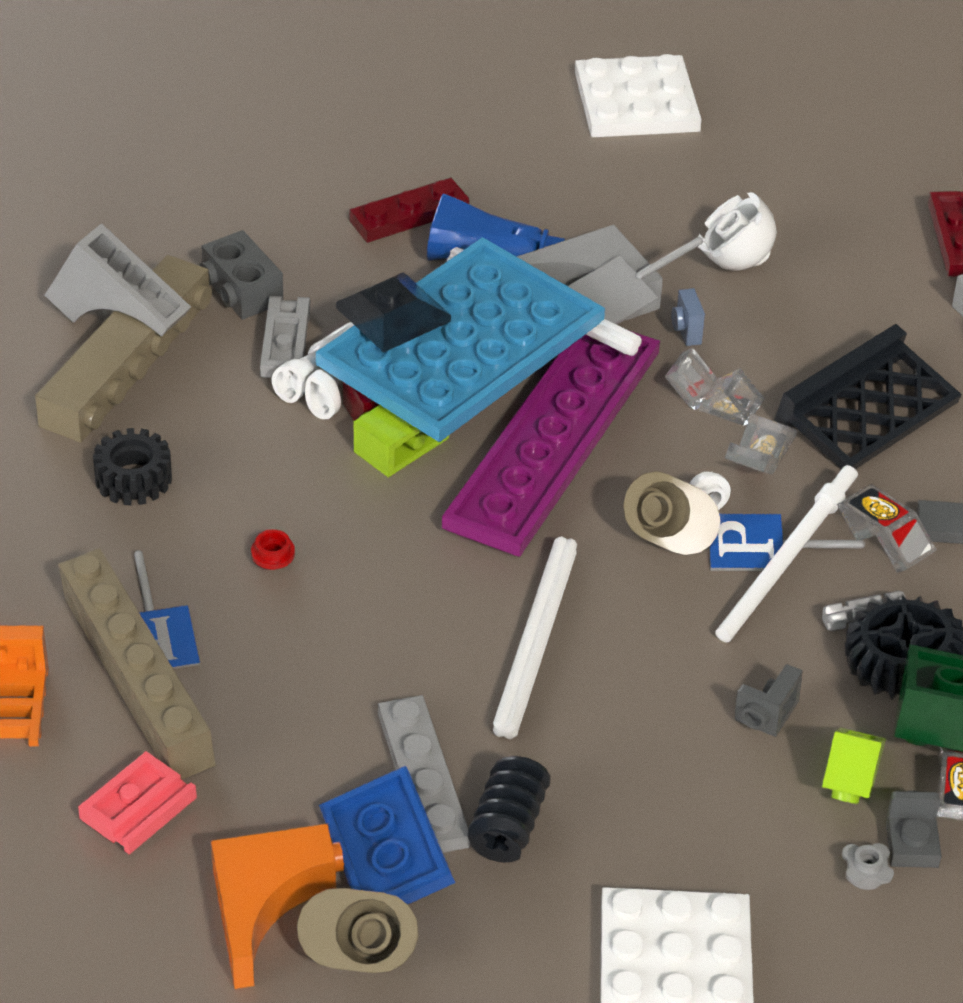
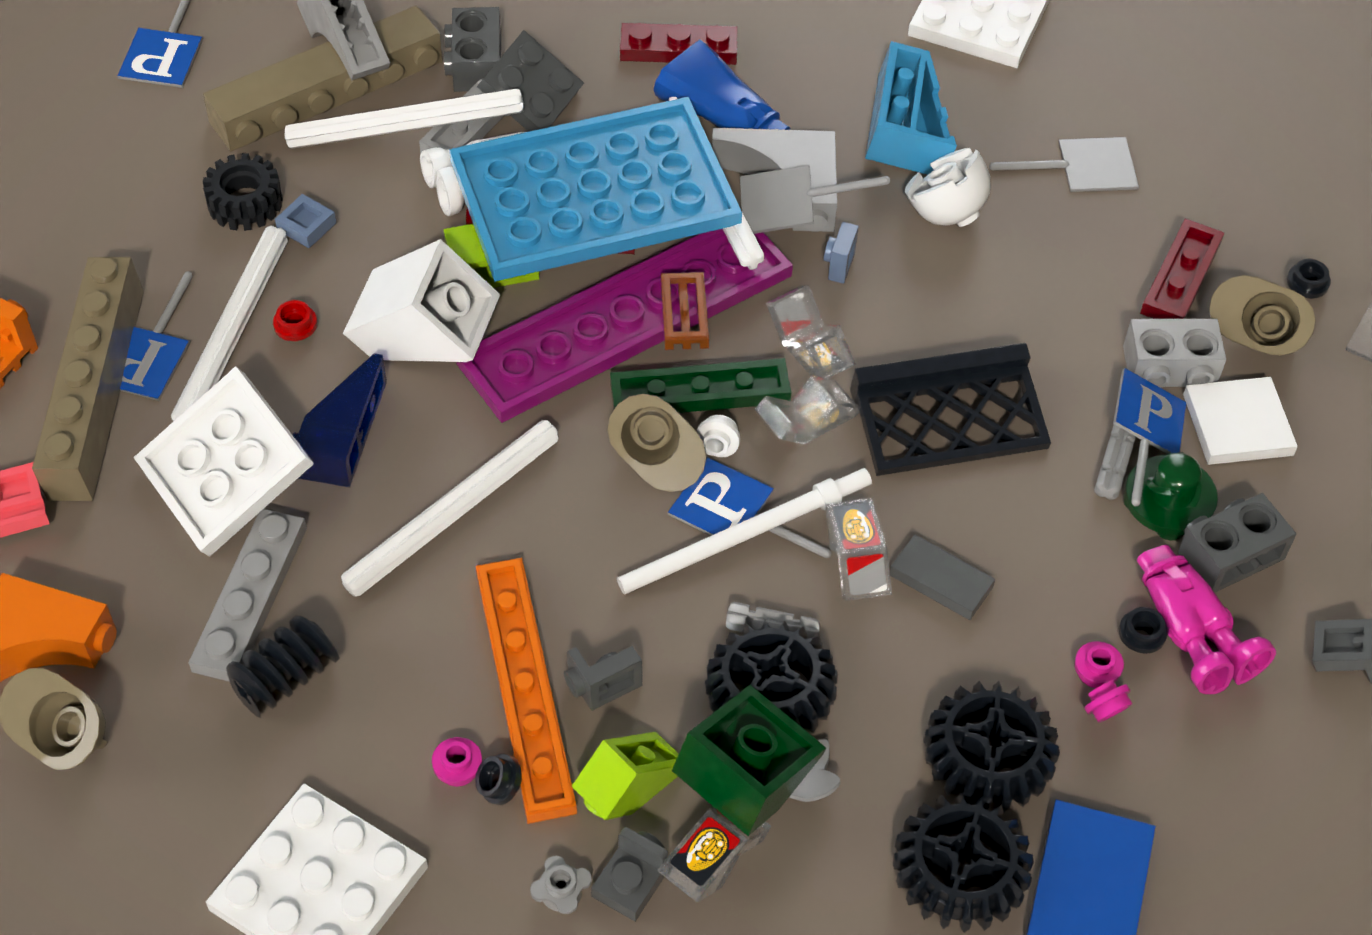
camera: 30 degrees right, 10 degrees up
(211, 467) = (306, 220): none -> sand blue plate
(218, 580) = (234, 318): none -> white axle
(231, 352) = (404, 118): none -> white axle
(316, 280) = (539, 76): none -> dark grey plate
(323, 675) = (223, 461): none -> white plate
(388, 489) = (423, 308): none -> white slope
(388, 838) = (156, 646): blue tile -> none
(393, 312) = (545, 138): black slope -> none
(395, 622) = (340, 424): none -> clear blue slope
(600, 408) = (684, 336): none -> dark orange tile
(653, 192) = (907, 114): none -> dark azure wedge
(674, 455) = (706, 385): none -> dark green plate
(708, 817) = (459, 773): none -> dark pink plate
(713, 743) = (526, 691): none -> orange tile
(745, 807) = (498, 778): none -> black plate
(820, 181) = (1088, 164): none -> piece

